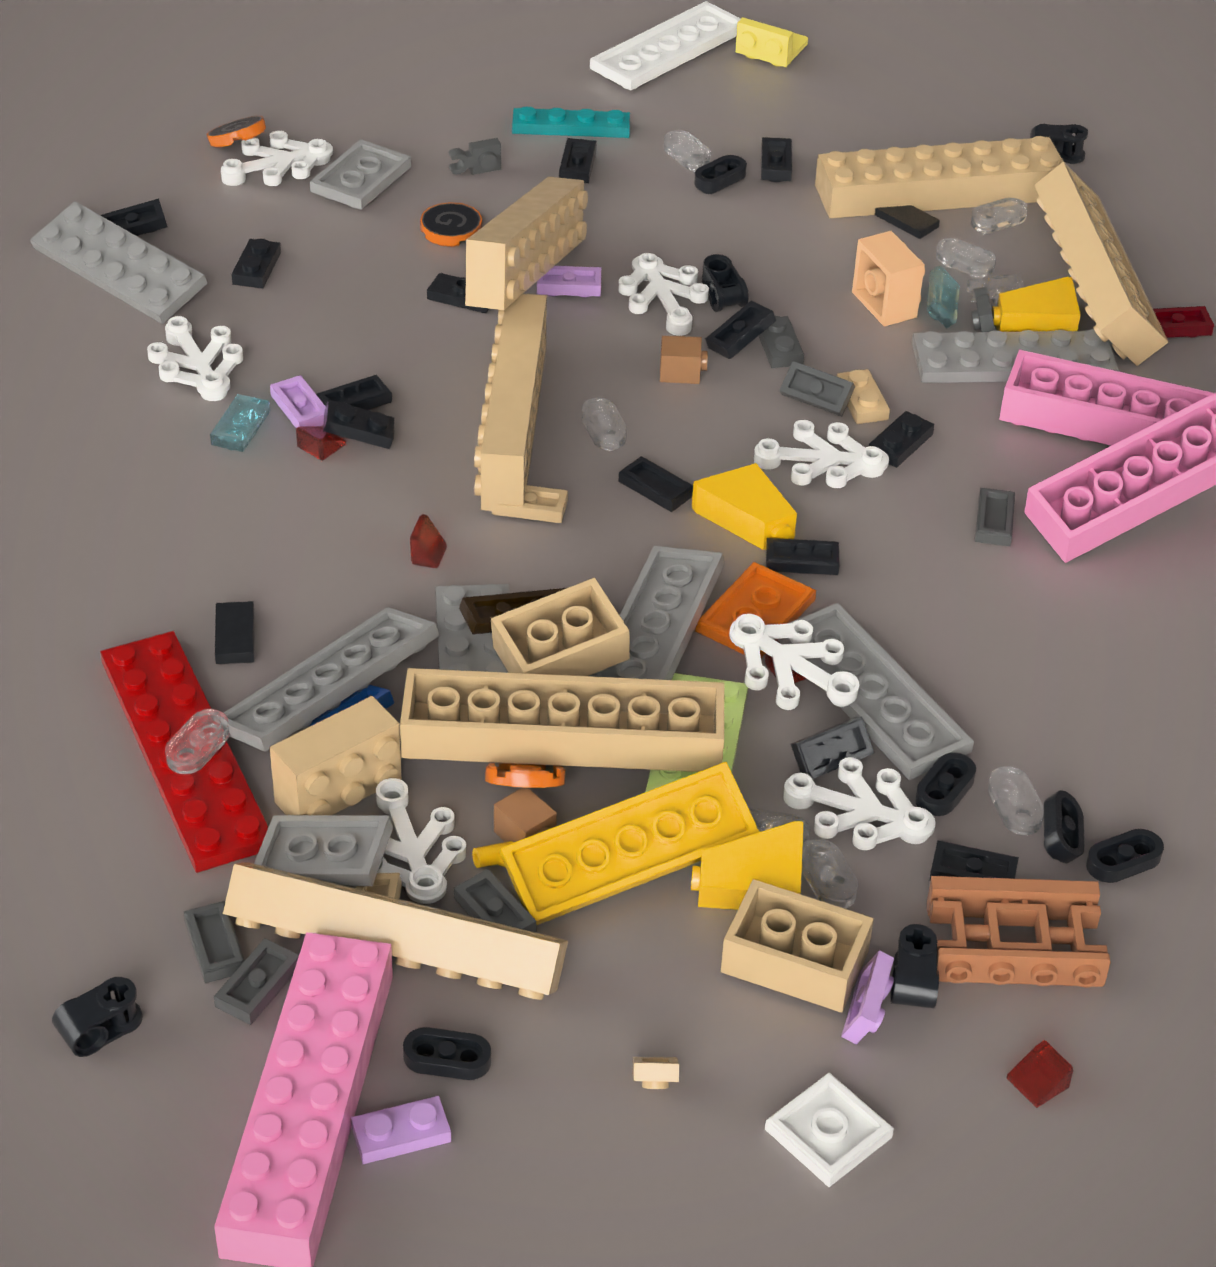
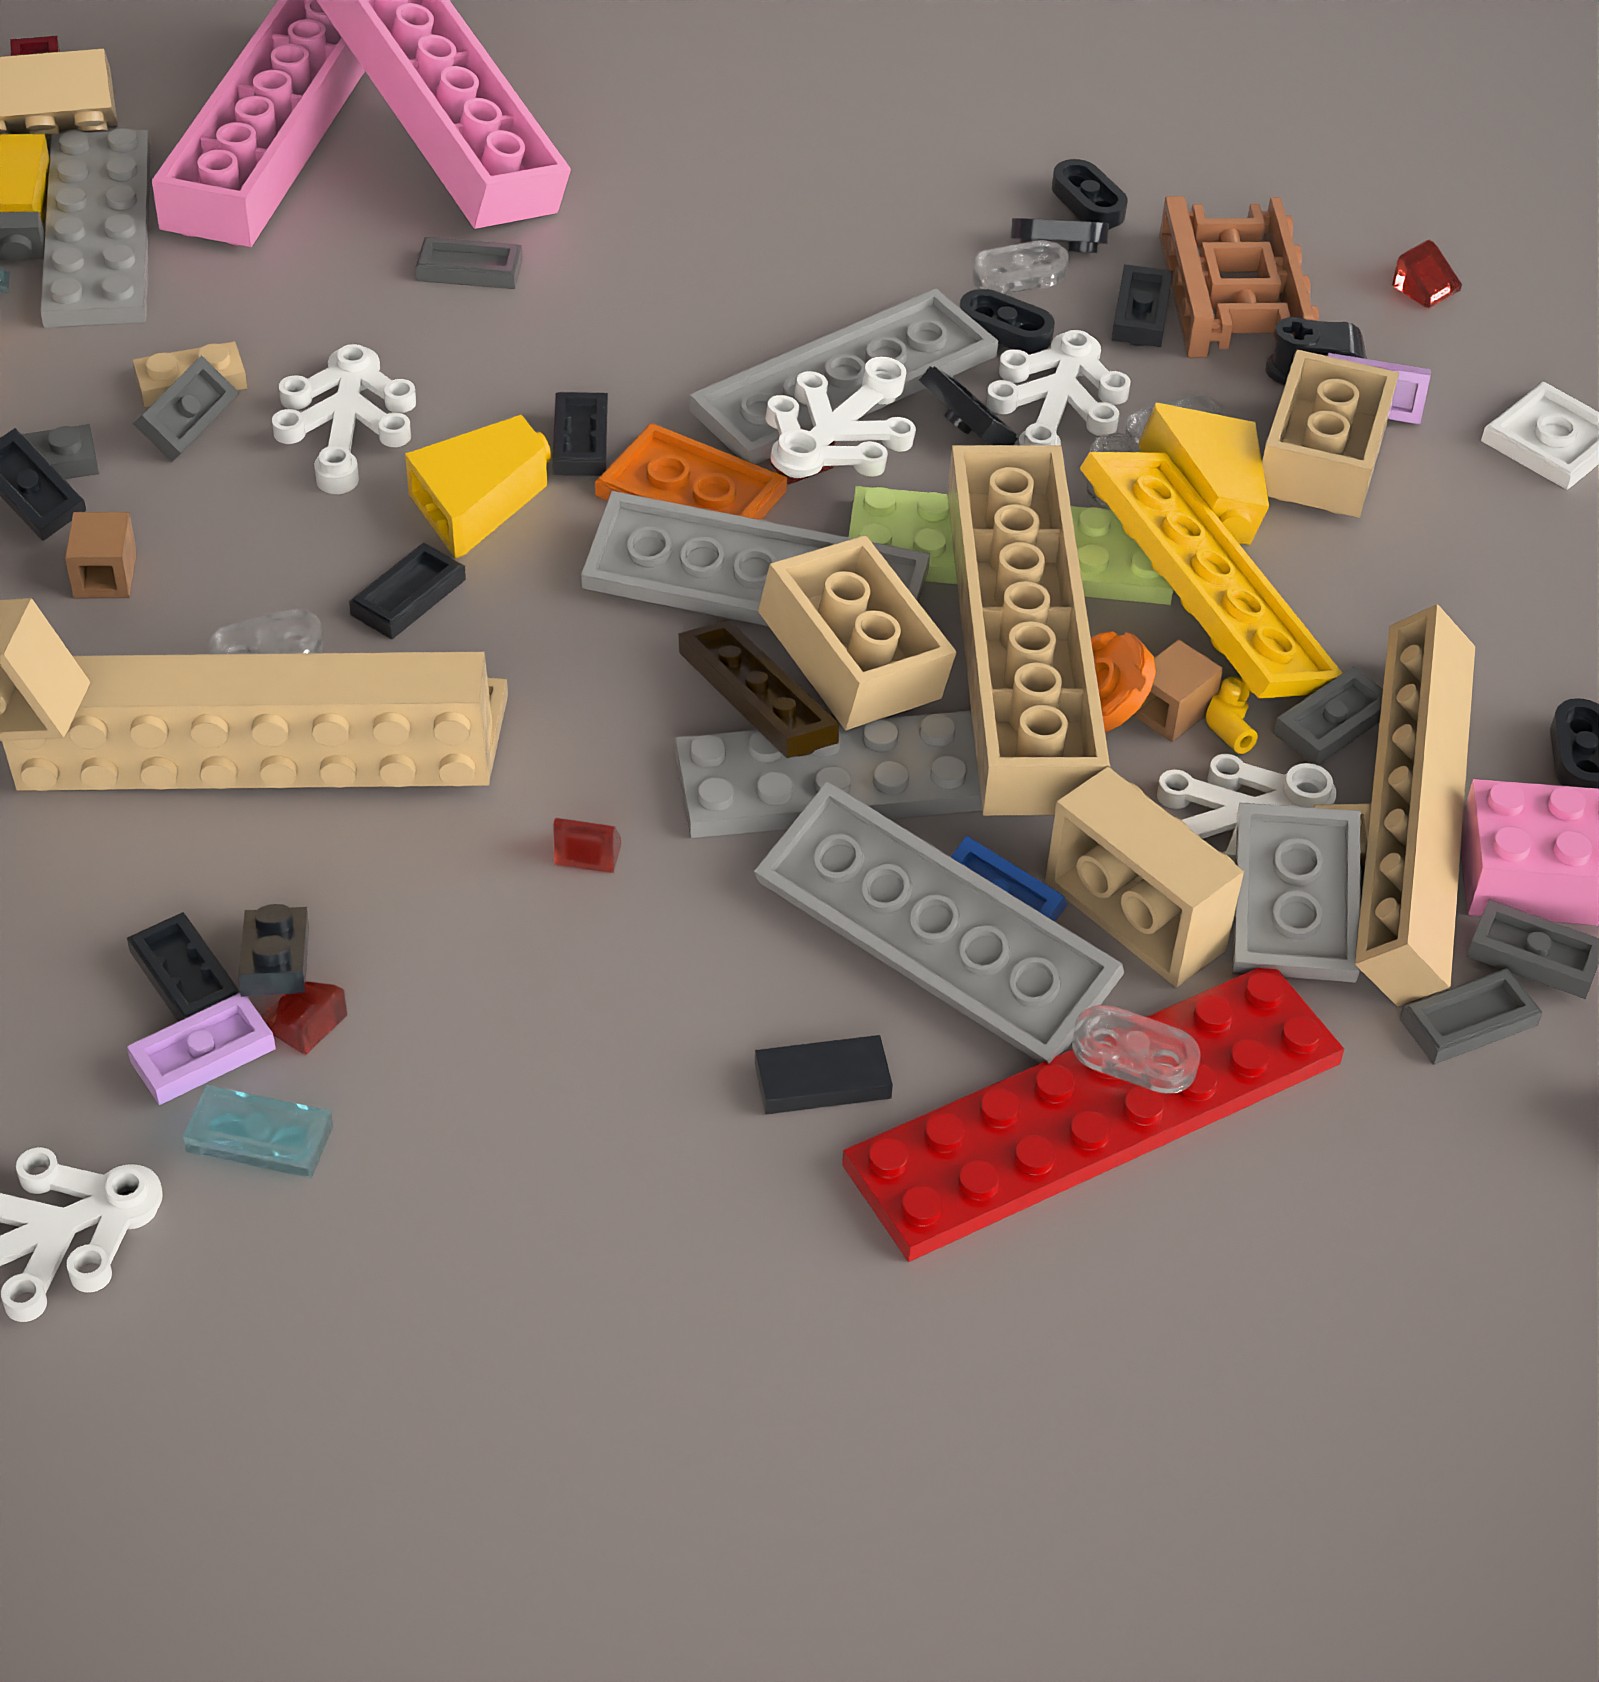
camera: 95 degrees left, 5 degrees up
(655, 1071) = (1541, 559): plate -> none
(903, 437) = (292, 337): black plate -> none

